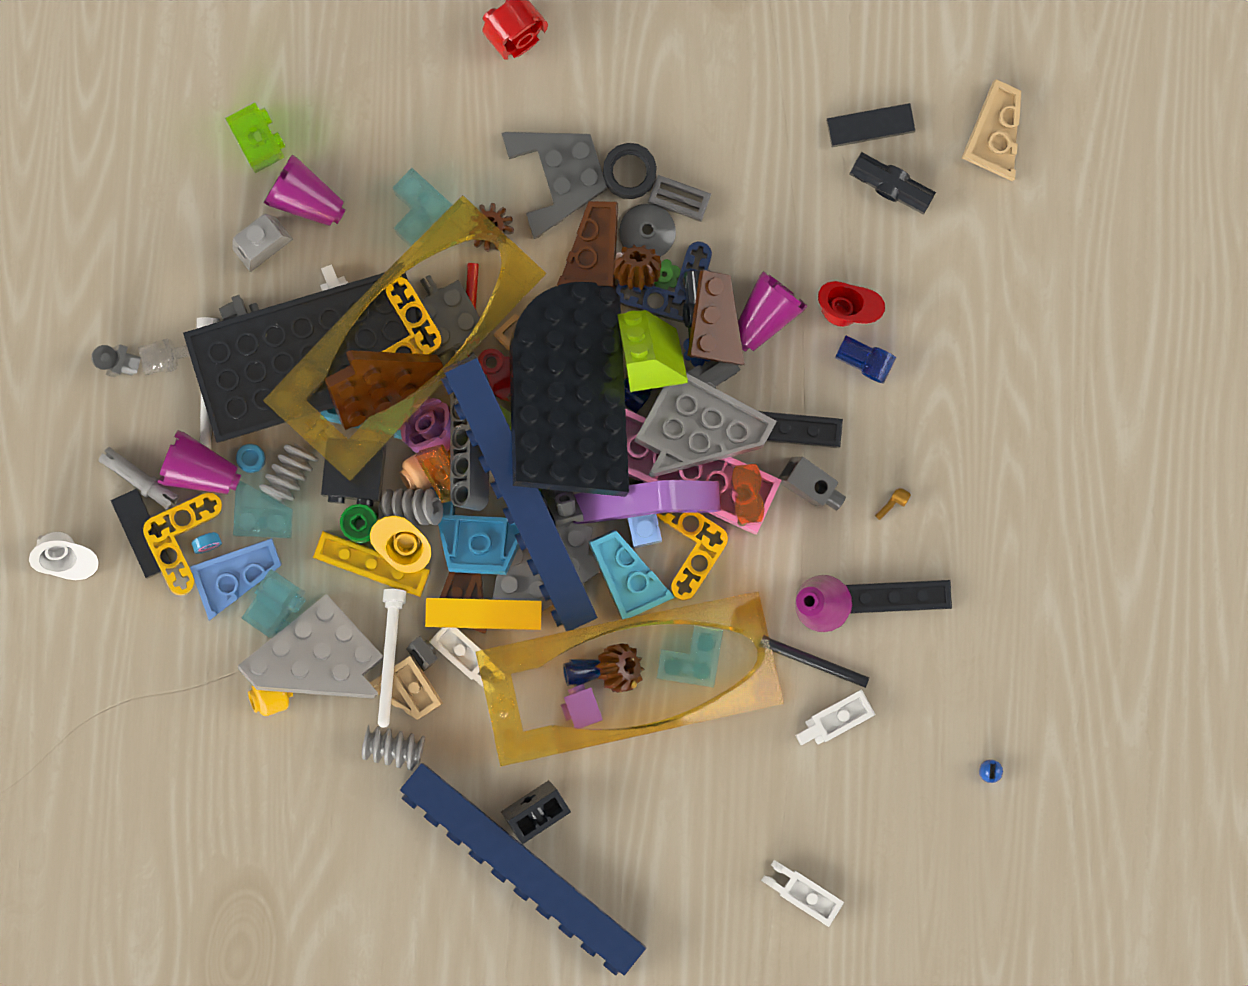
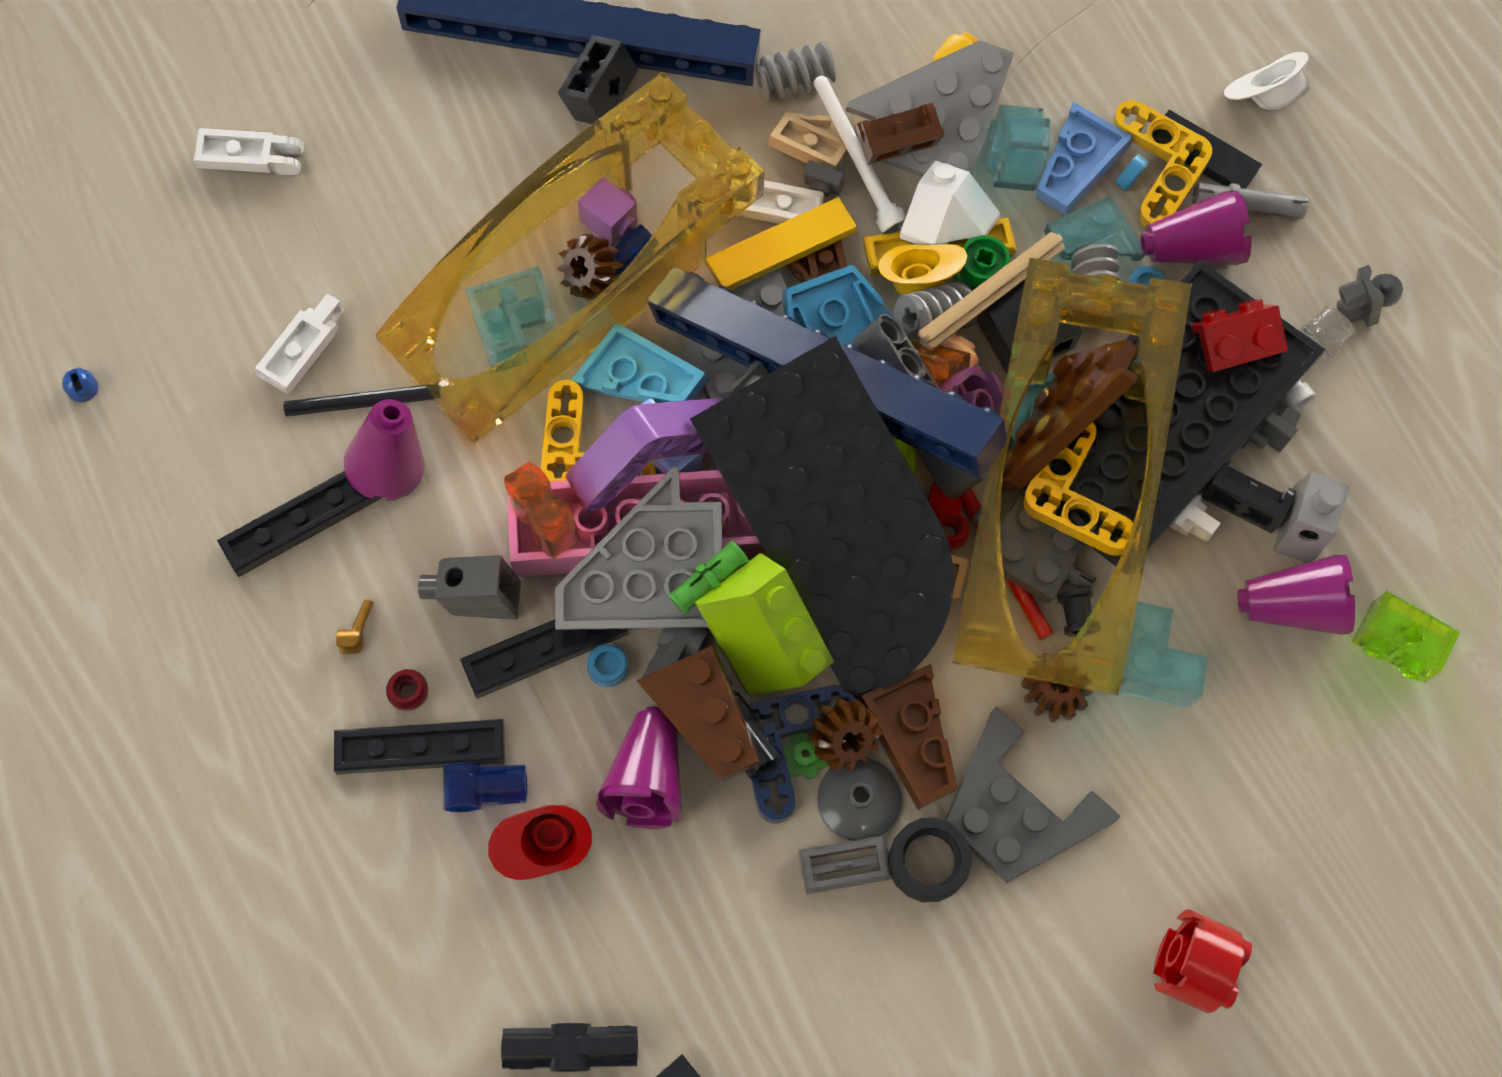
camera: 145 degrees right, 15 degrees down
(233, 371) = (1241, 335): none -> red bracket
(284, 276) = (1248, 498): none -> black hinge
(355, 577) = (948, 208): none -> white slope
(357, 646) = (900, 133): none -> reddish brown hinge
(370, 494) = (988, 292): none -> tan axle
(446, 265) = (1076, 608): none -> black bush
(651, 397) = (708, 577): none -> bright green pin
(752, 394) = (607, 665): none -> dark azure tile
(890, 445) = (402, 679): none -> dark red plate
(891, 407) = (418, 746): none -> black tile

